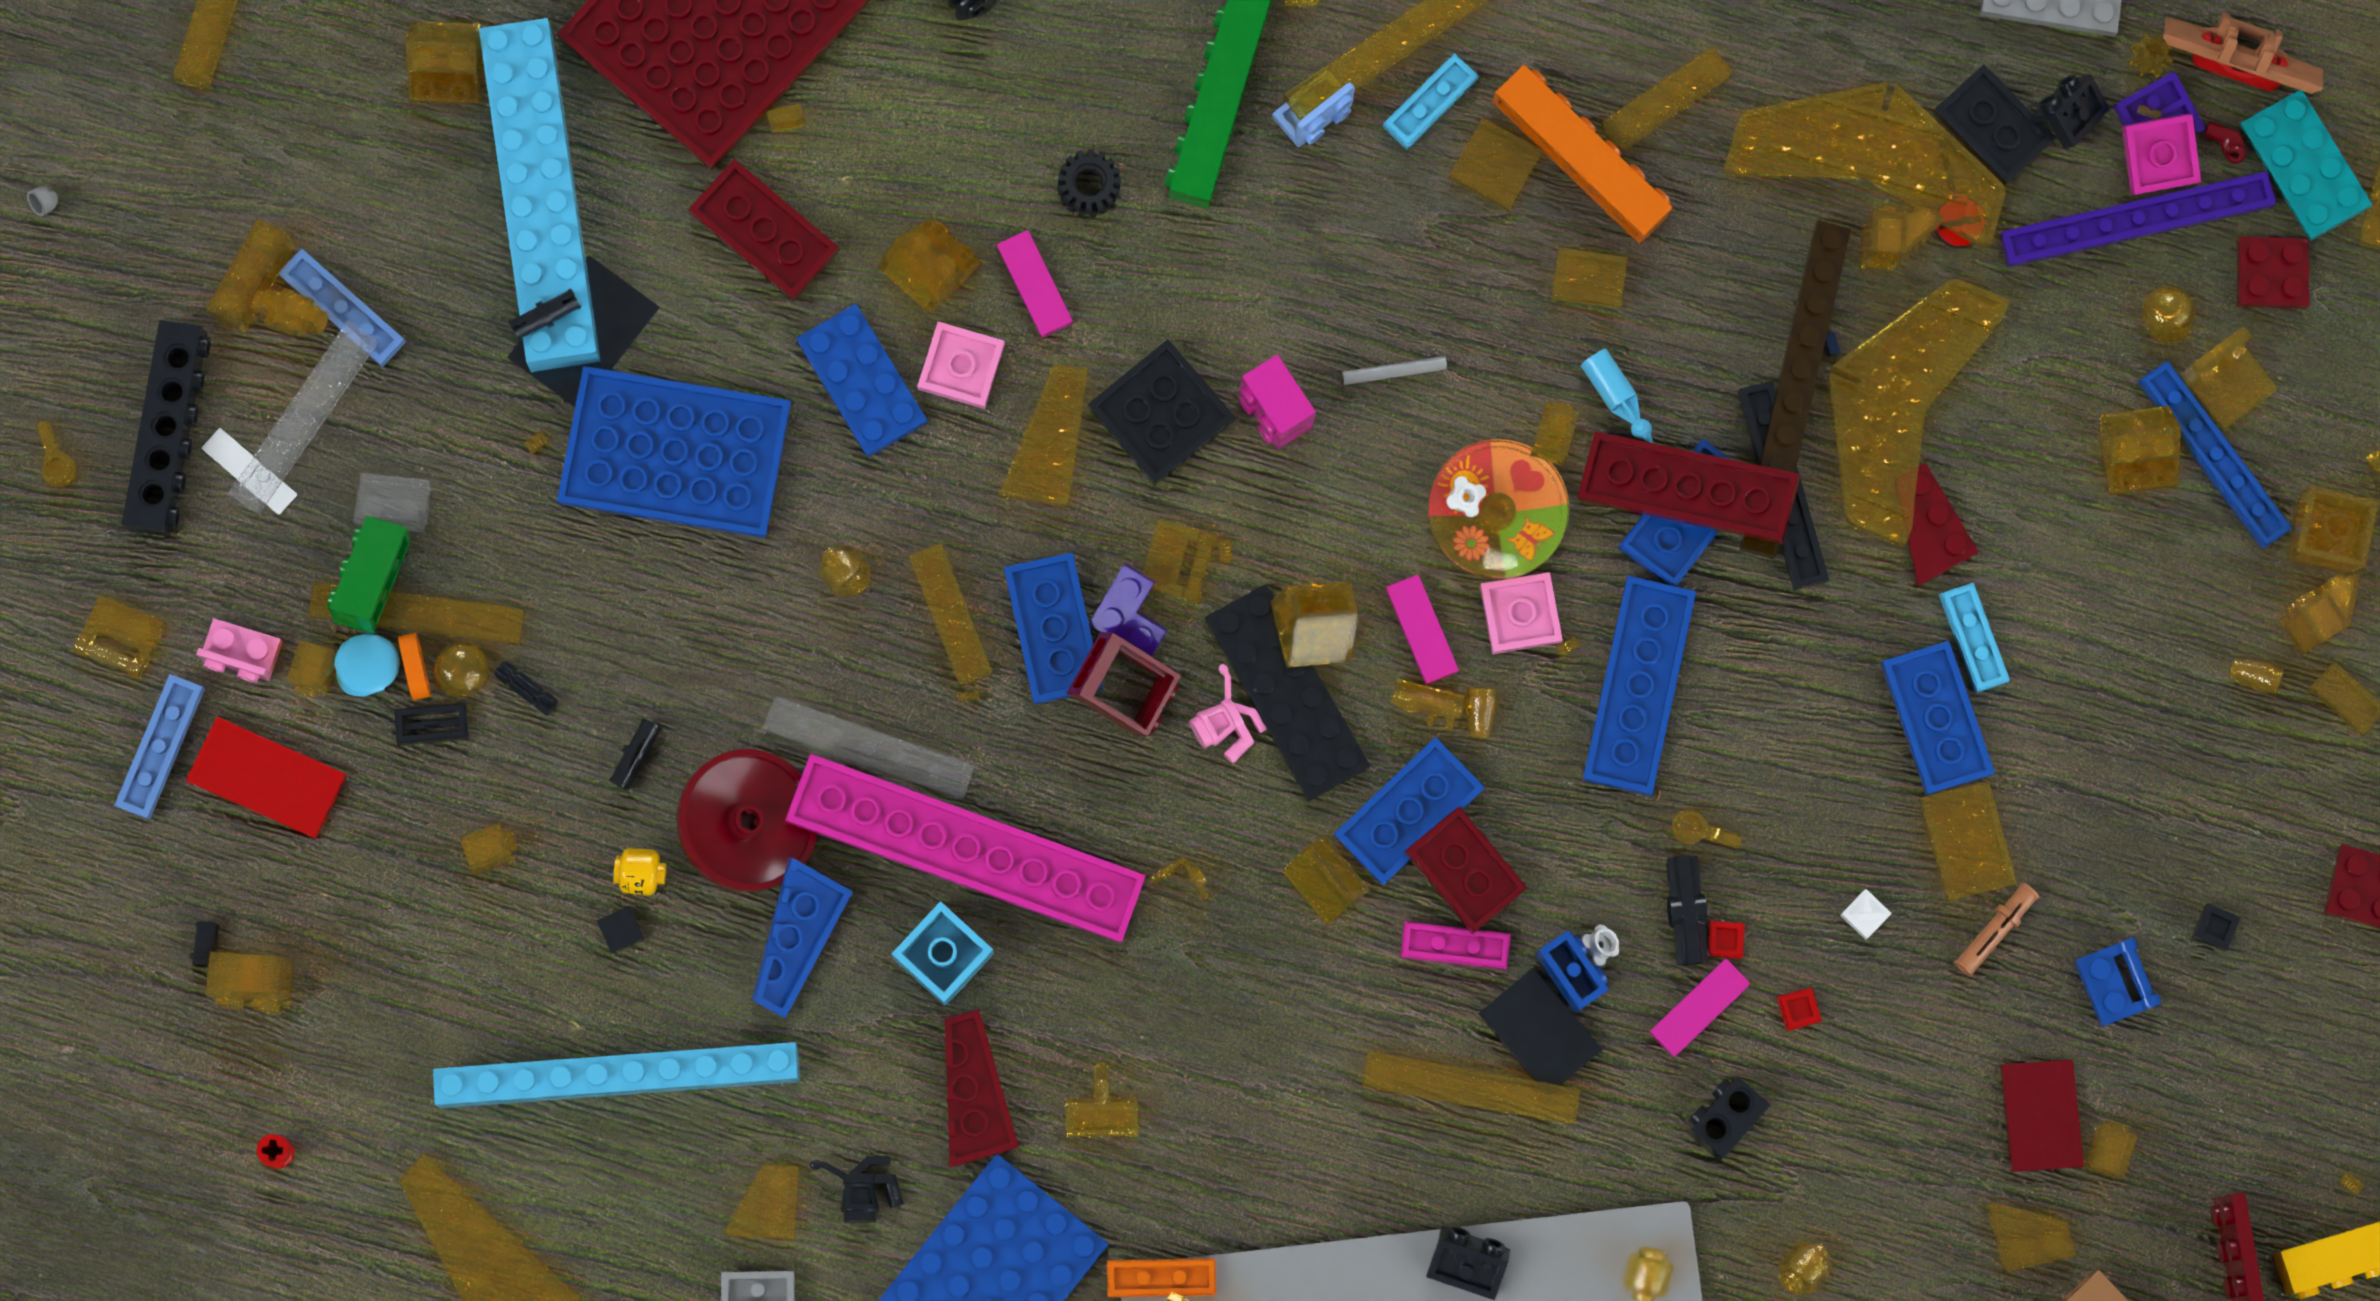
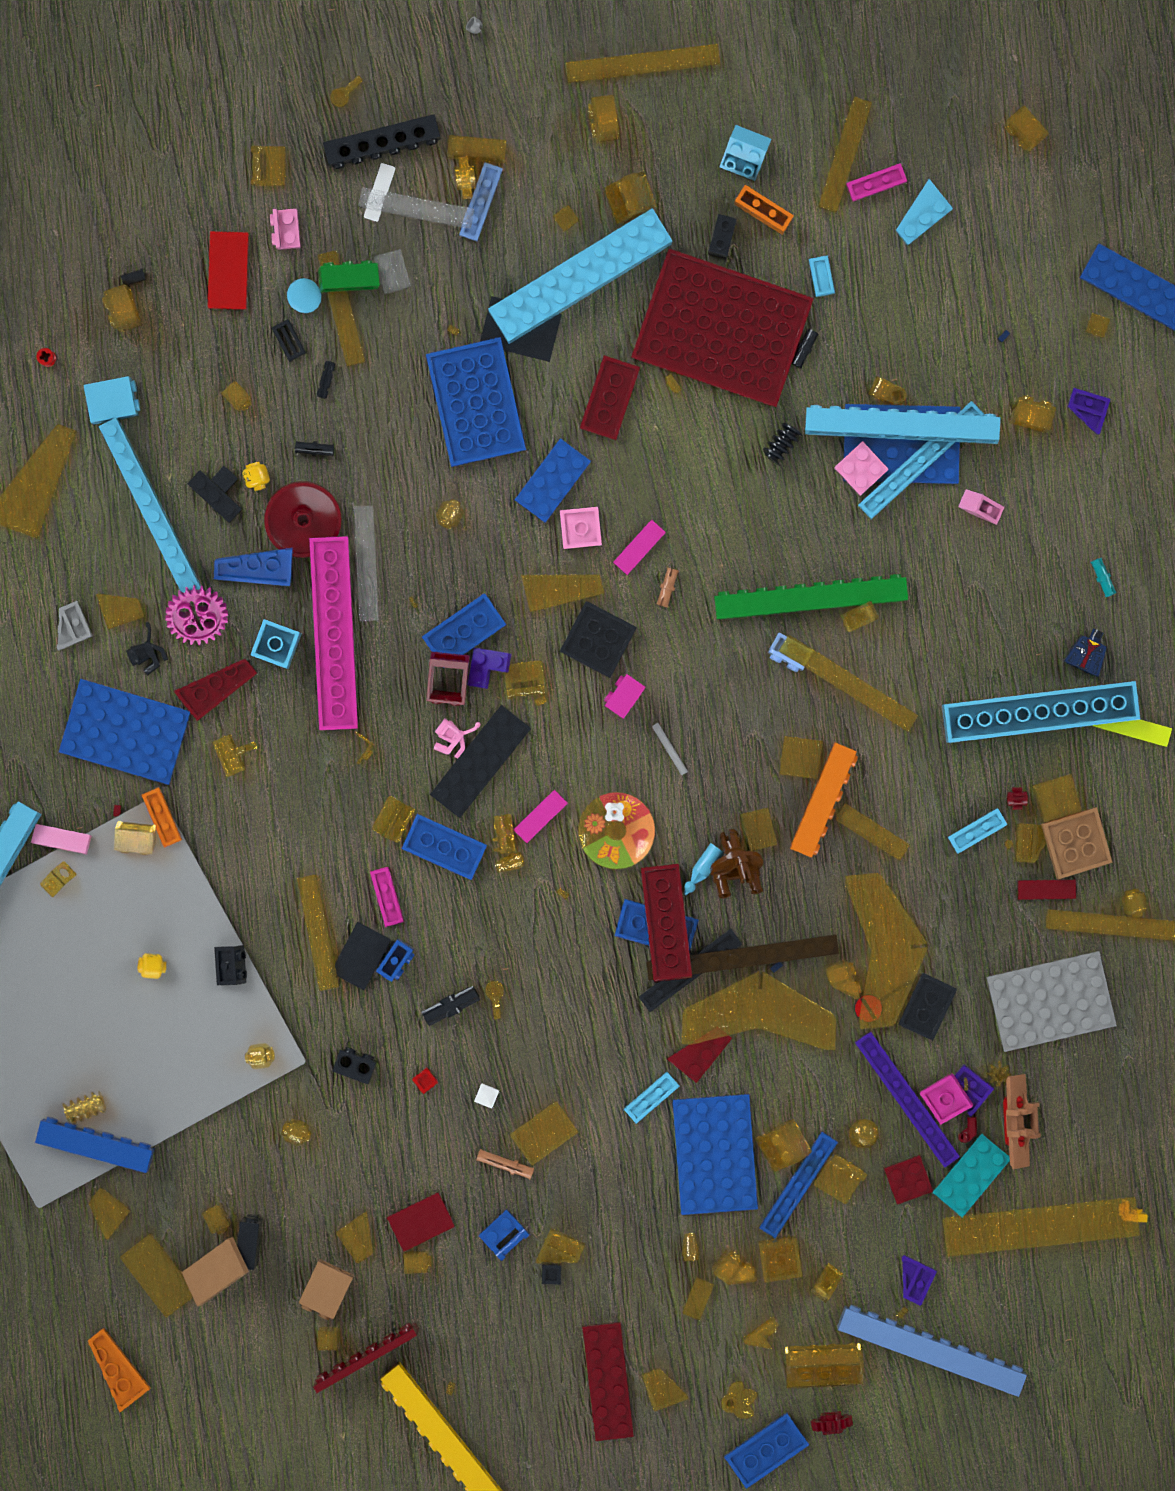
camera: 70 degrees right, 10 degrees up
(159, 747) = (221, 211): medium blue plate -> none
(295, 47) = (604, 116): none -> clear yellow brick
(312, 669) = (290, 269): clear yellow brick -> none
(399, 1067) = (111, 400): none -> medium azure brick
(414, 666) = (313, 319): orange beam -> none
(432, 182) = (566, 218): none -> clear yellow tile
(460, 669) = (321, 343): clear yellow hair -> none
(544, 314) = (514, 307): black pin -> none
(643, 960) = (214, 496): none -> black plate
(833, 1103) = (180, 620): none -> dark pink gear
(929, 263) = (626, 490): clear yellow slope -> none
(950, 615) = (449, 576): clear yellow plate -> none
(1088, 163) = (714, 549): black tyre -> none
(1121, 264) = (667, 587): none -> nougat pin
(1316, 623) = (518, 762): clear yellow slope -> none
(1430, 101) = (820, 710): medium azure tile -> none
(1465, 870) = (425, 886): dark red tile -> none
(1521, 613) = (569, 863): bright pink plate -> none
(1555, 433) = (667, 844): clear yellow tile -> none
(1607, 940) = (416, 974): white plate -> none
(1635, 333) = (736, 865): none -> reddish brown piece
(1639, 686) = (556, 937): blue plate -> none
(1699, 1008) = (405, 1030): dark pink tile -> none
(1725, 939) = (445, 1030): red tile -> none
(1937, 718) = (601, 1094): blue plate -> none
(2072, 109) = (951, 1043): black bracket -> none
(2111, 571) = (715, 1154): none -> blue plate
(2177, 895) = (560, 1248): none -> clear yellow wing

